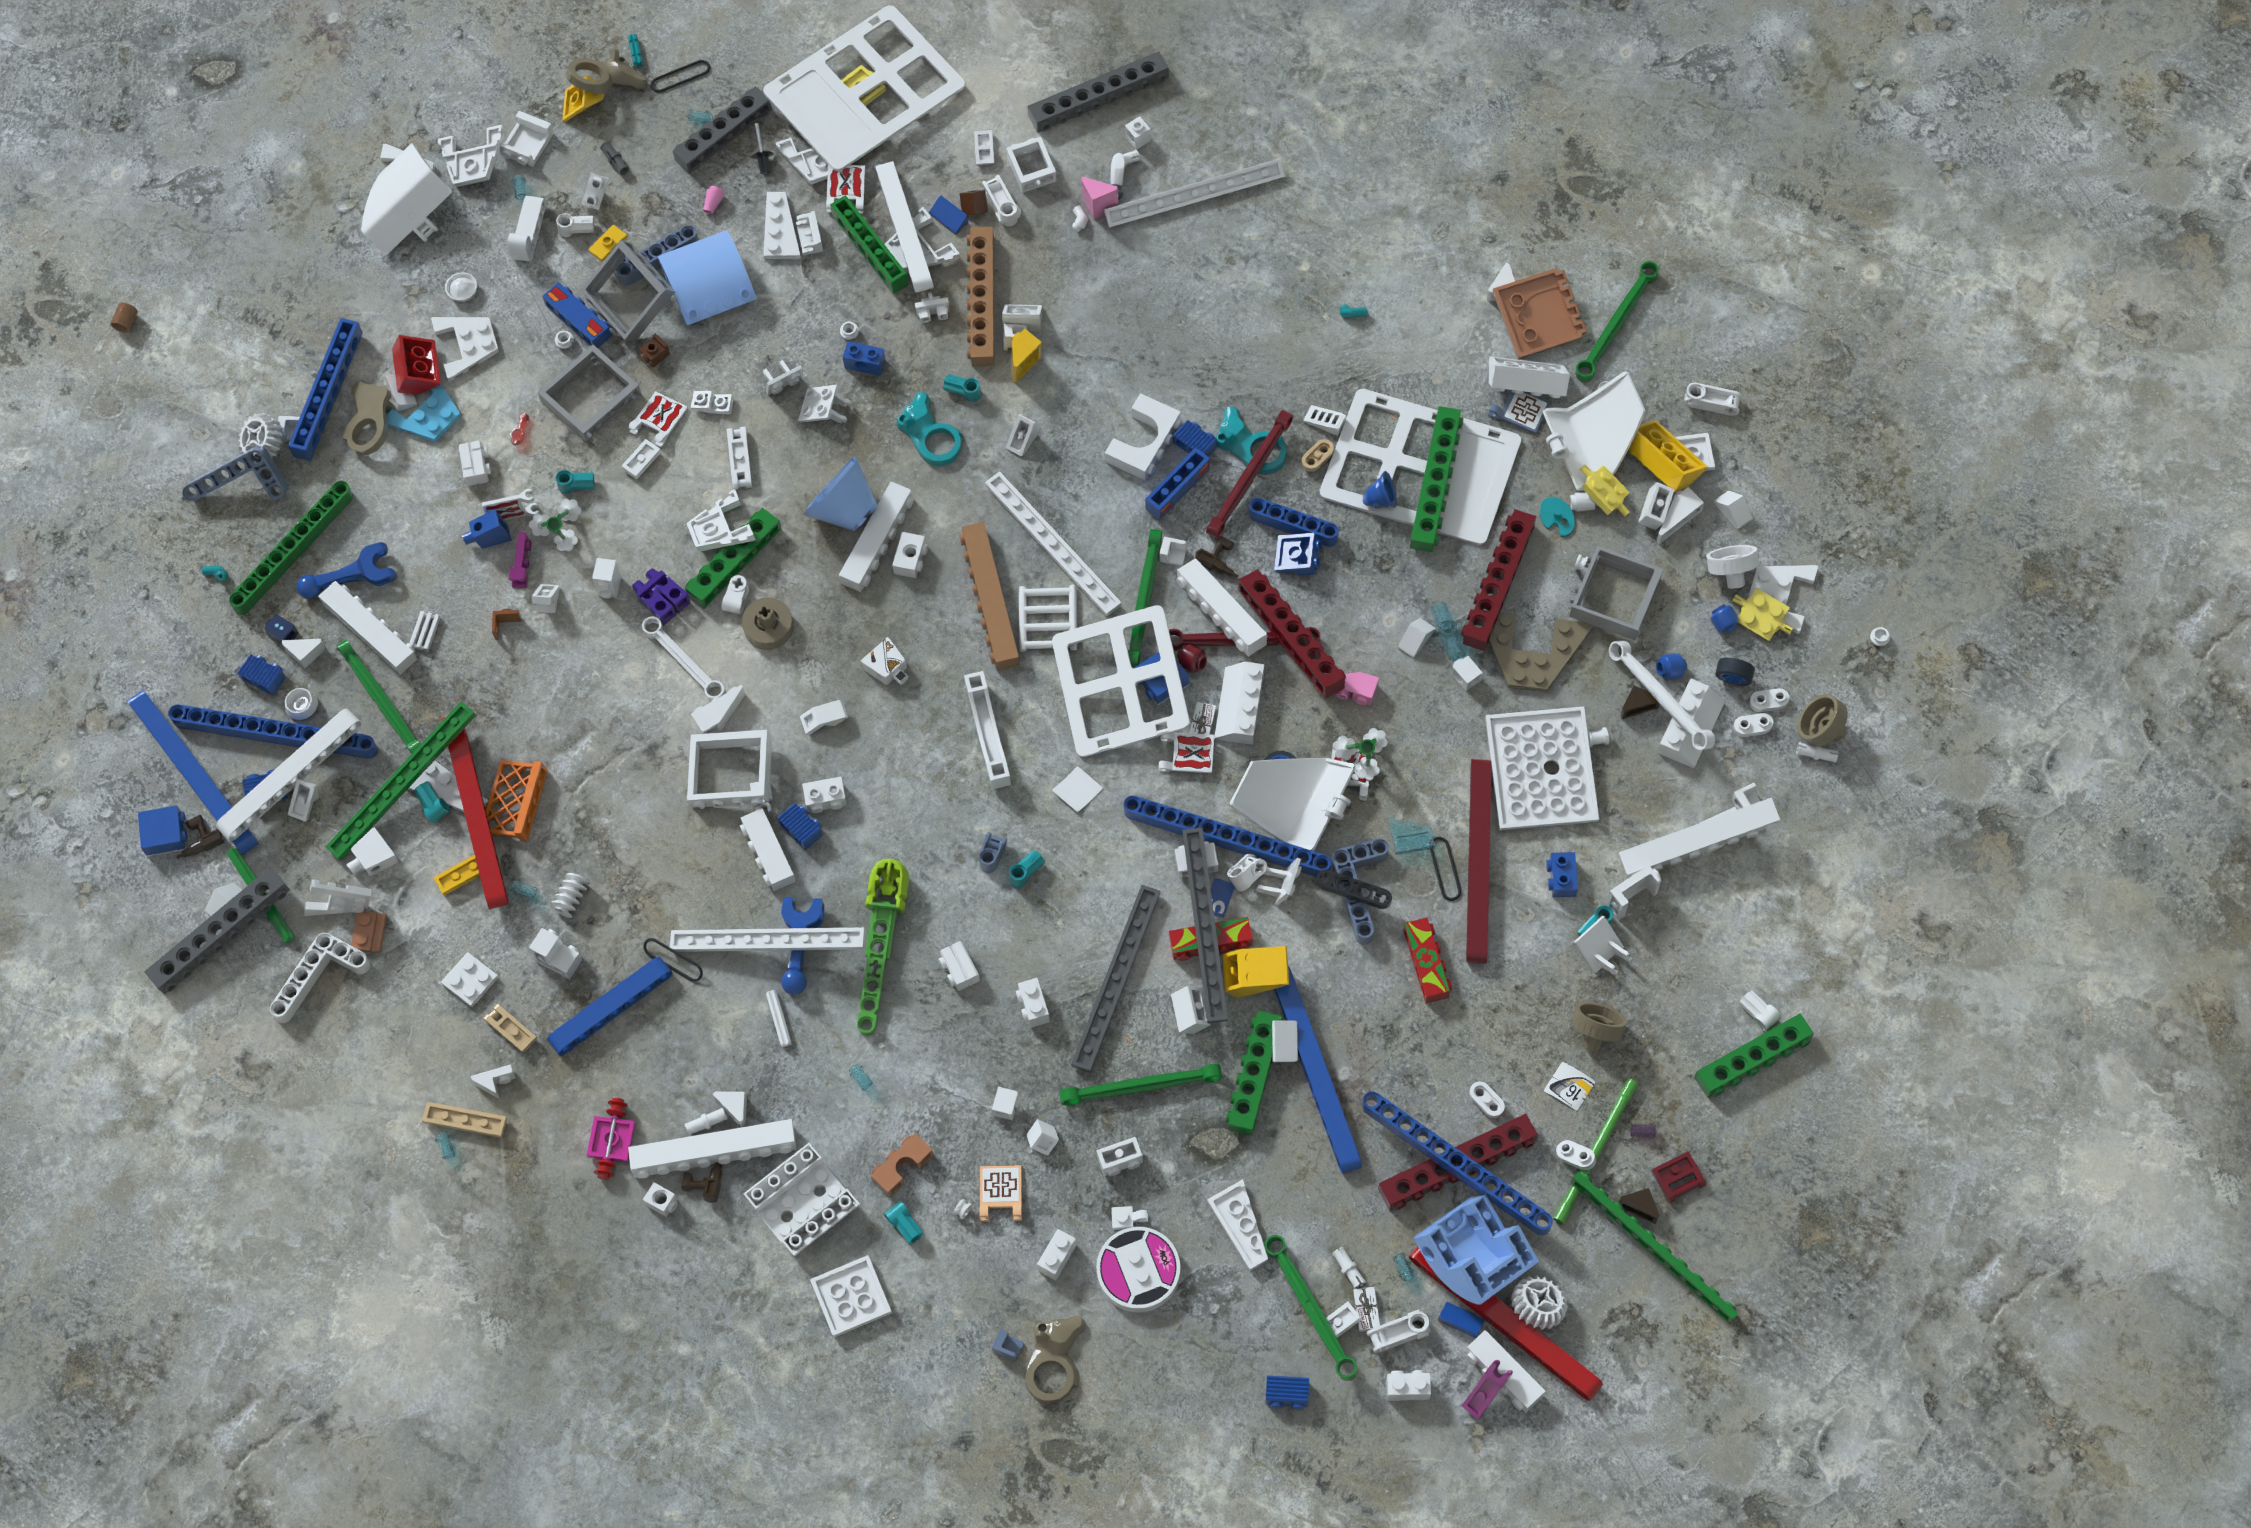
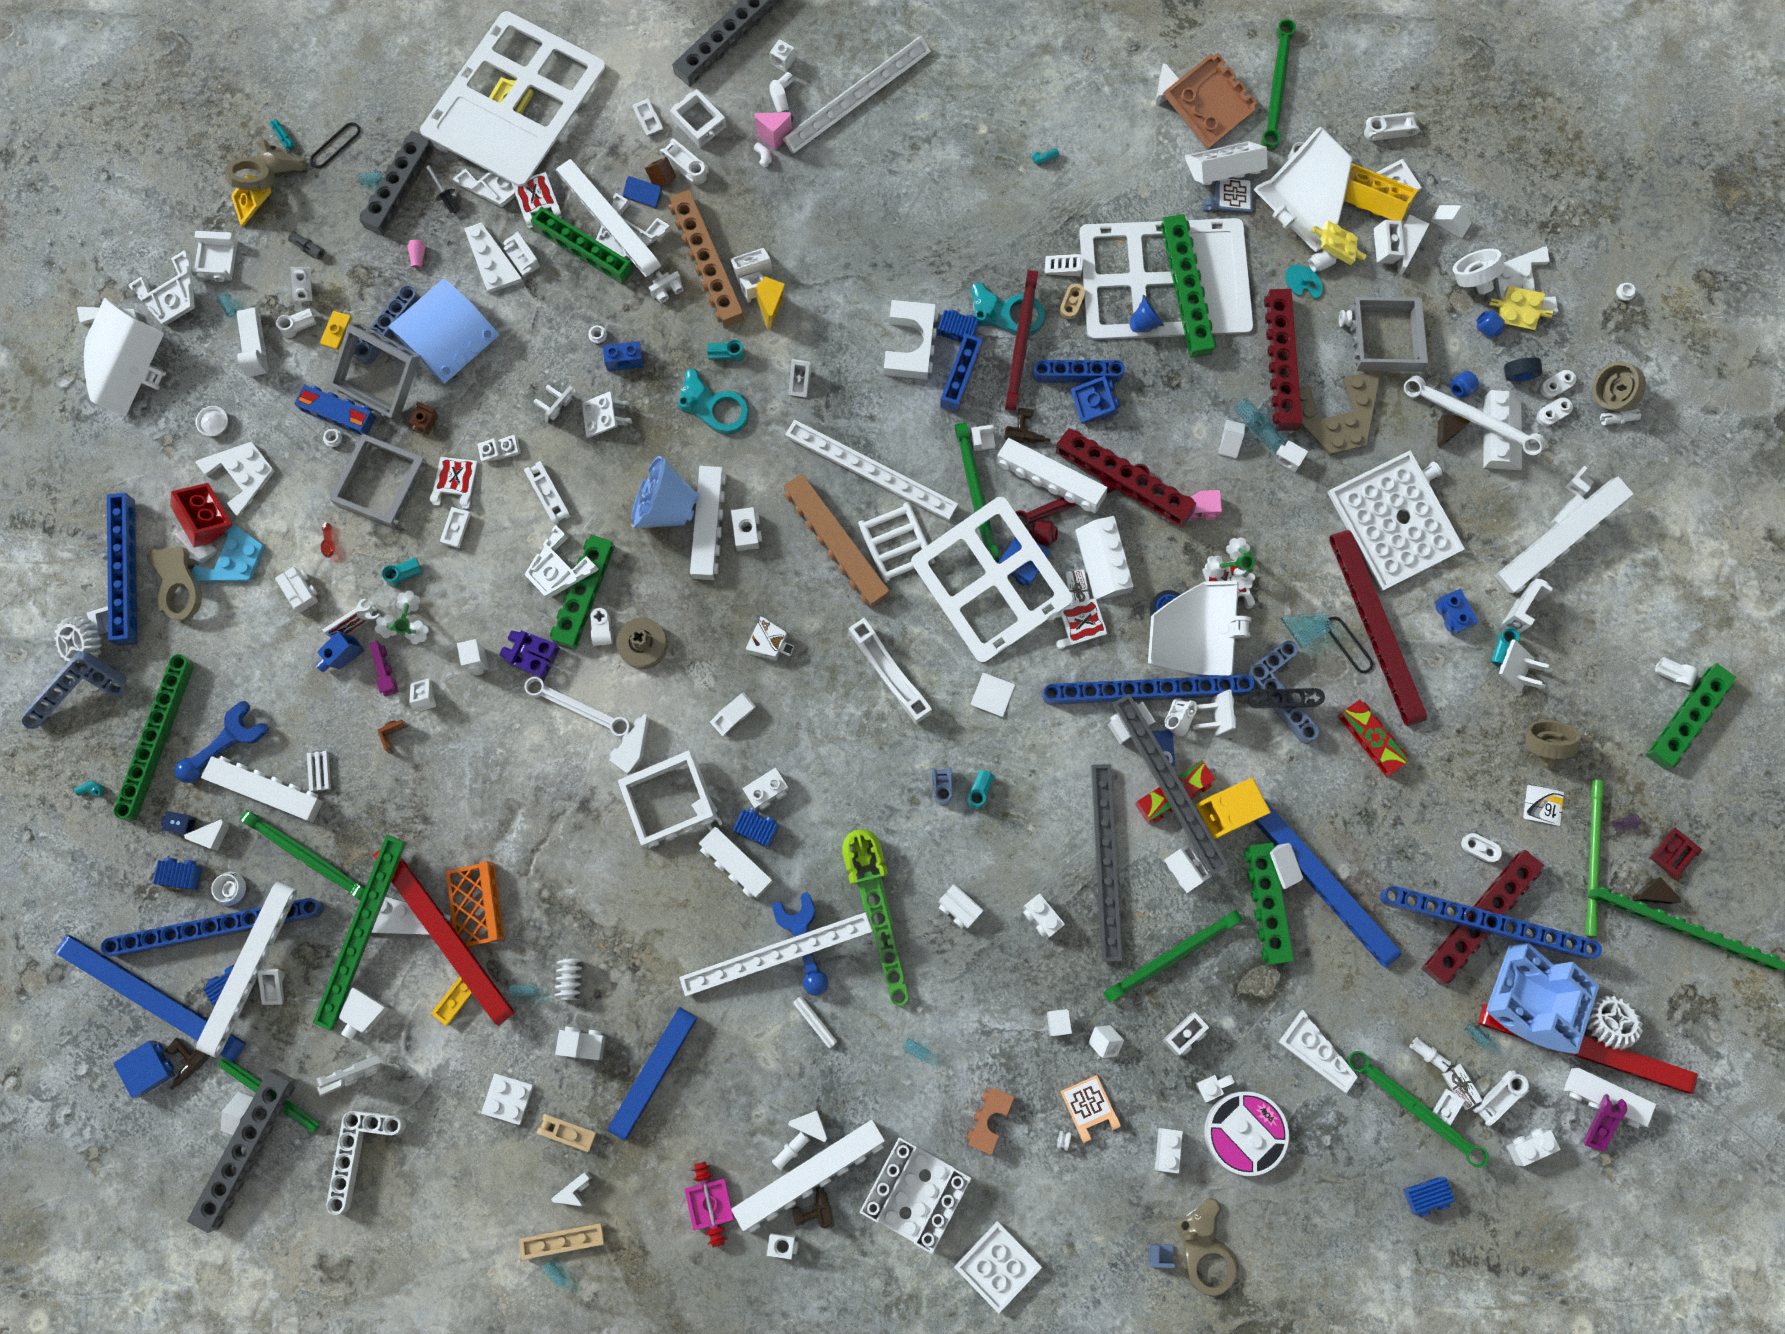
camera: 25 degrees left, 10 degrees up
(369, 931) = (390, 1090): nougat plate -> none
(434, 805) = (402, 943): teal piece -> none
(675, 952) = (695, 998): black piece -> none
(901, 1219) = (1012, 1173): teal piece -> none
(1461, 1320) = (1548, 1062): blue slope -> none
(1574, 1155) = (1581, 869): white plate -> none

